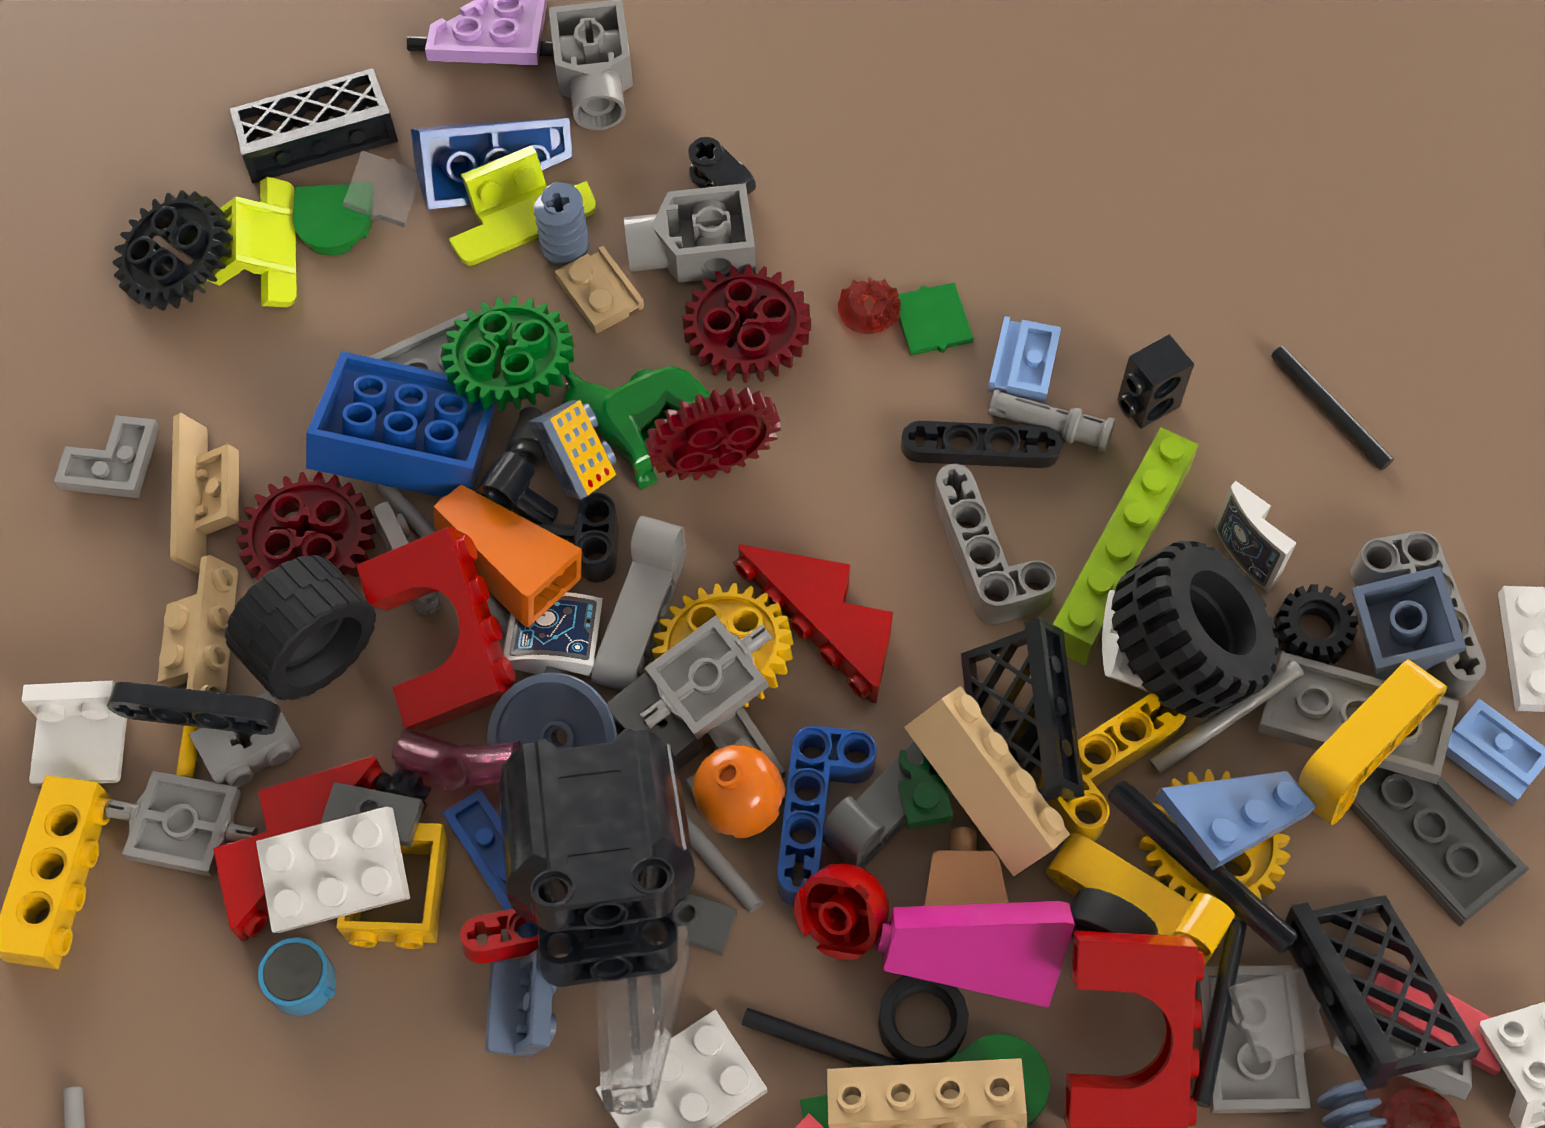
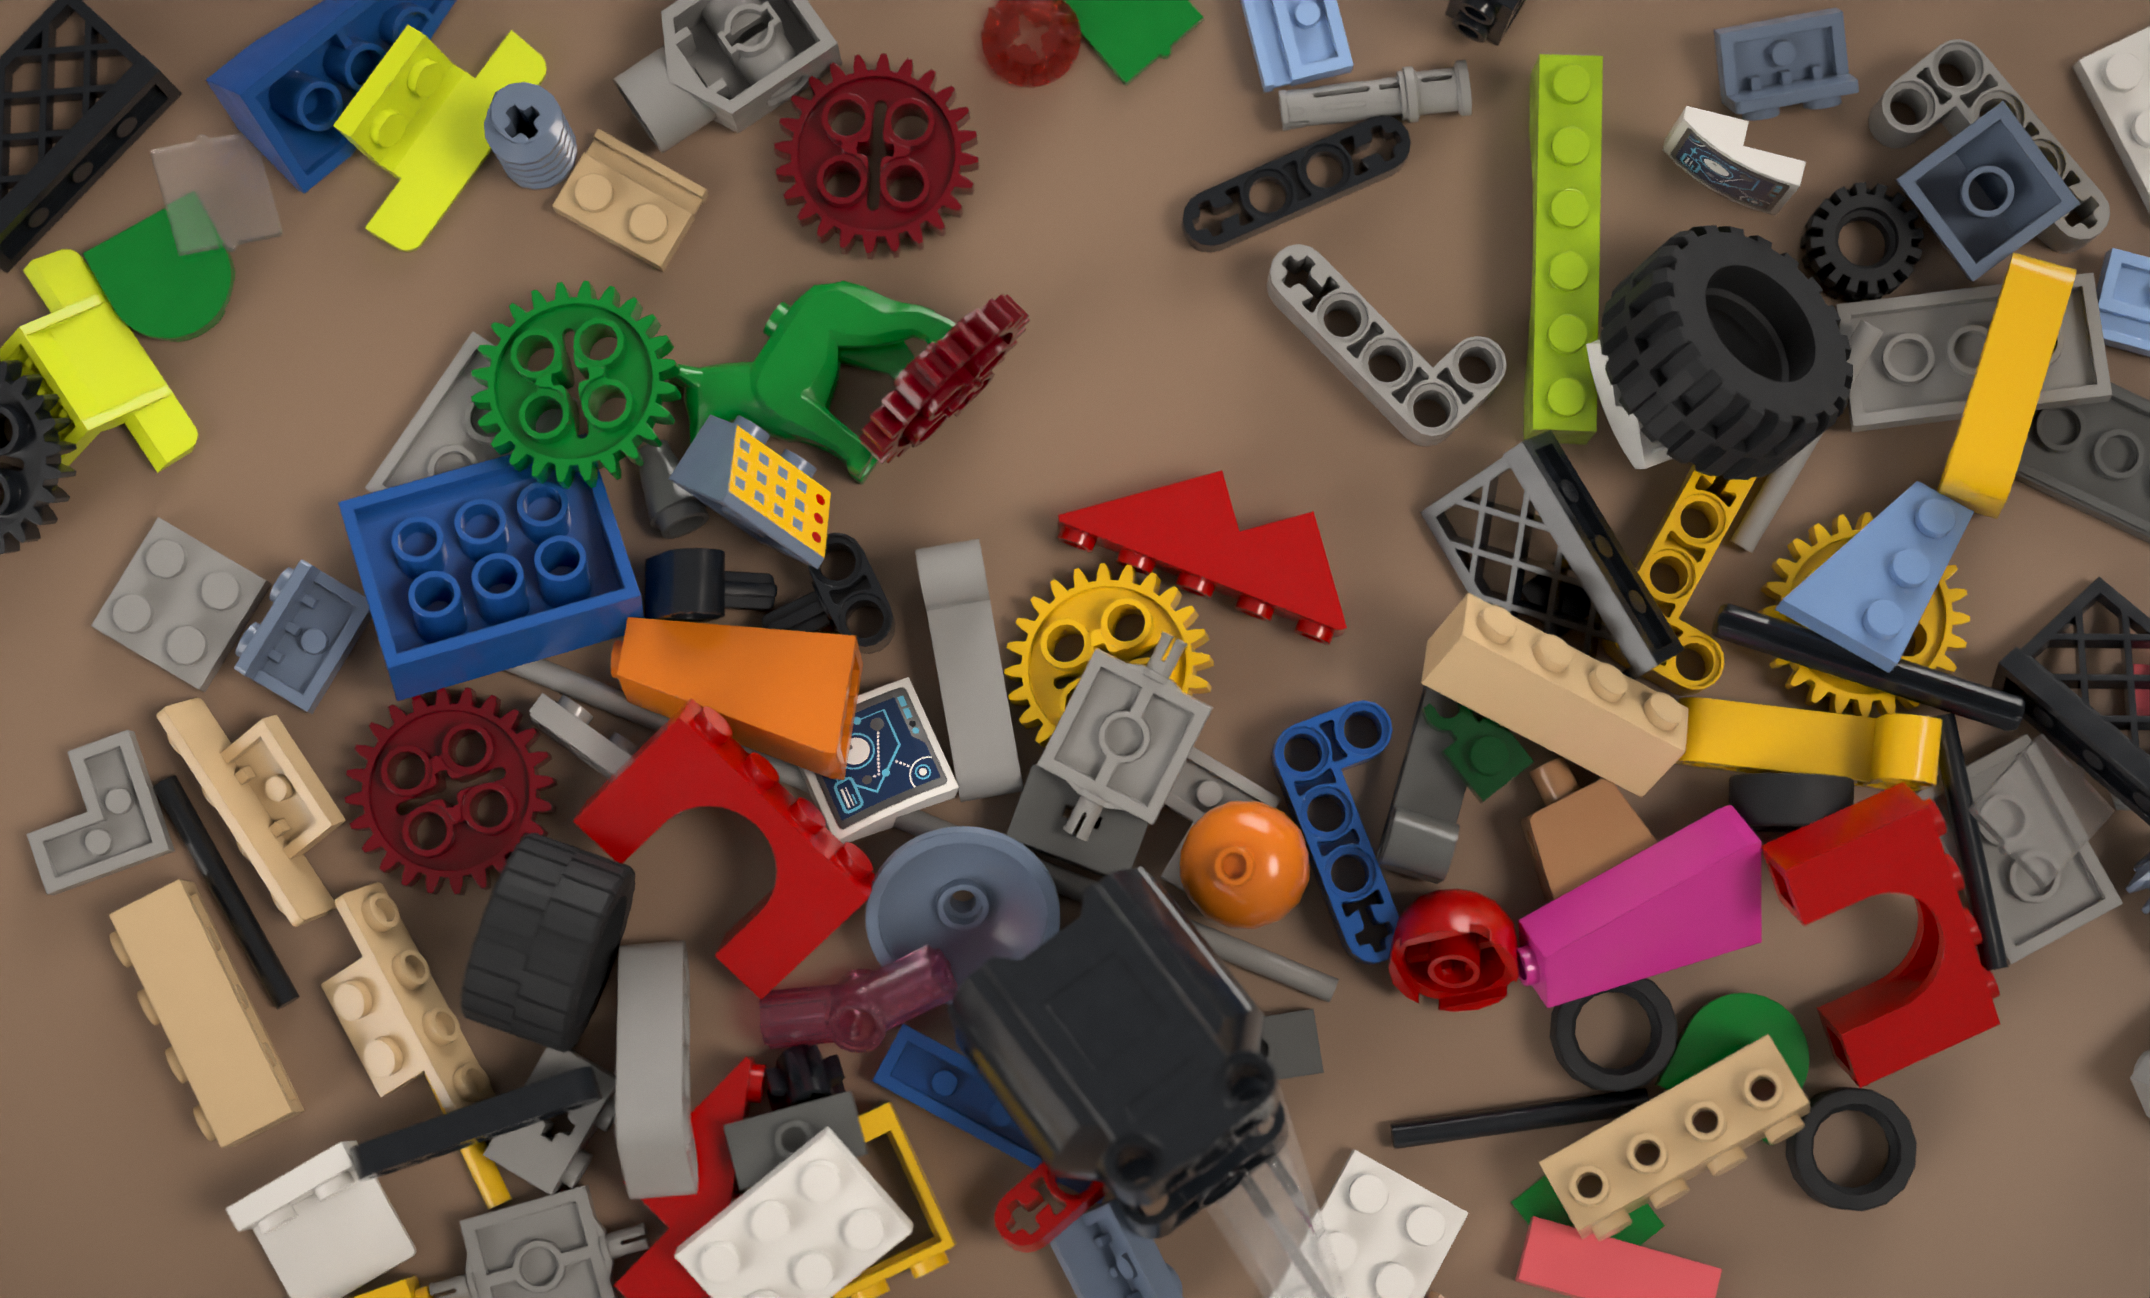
camera: 30 degrees left, 20 degrees up
(92, 588) = (205, 1014): none -> tan brick
(150, 534) = (226, 892): none -> black bar
(229, 377) = (181, 604): none -> light grey plate
(276, 415) = (303, 635): none -> sand blue bracket
(309, 732) = (654, 1071): none -> light grey beam
(1312, 504) = (1784, 64): none -> sand blue bracket

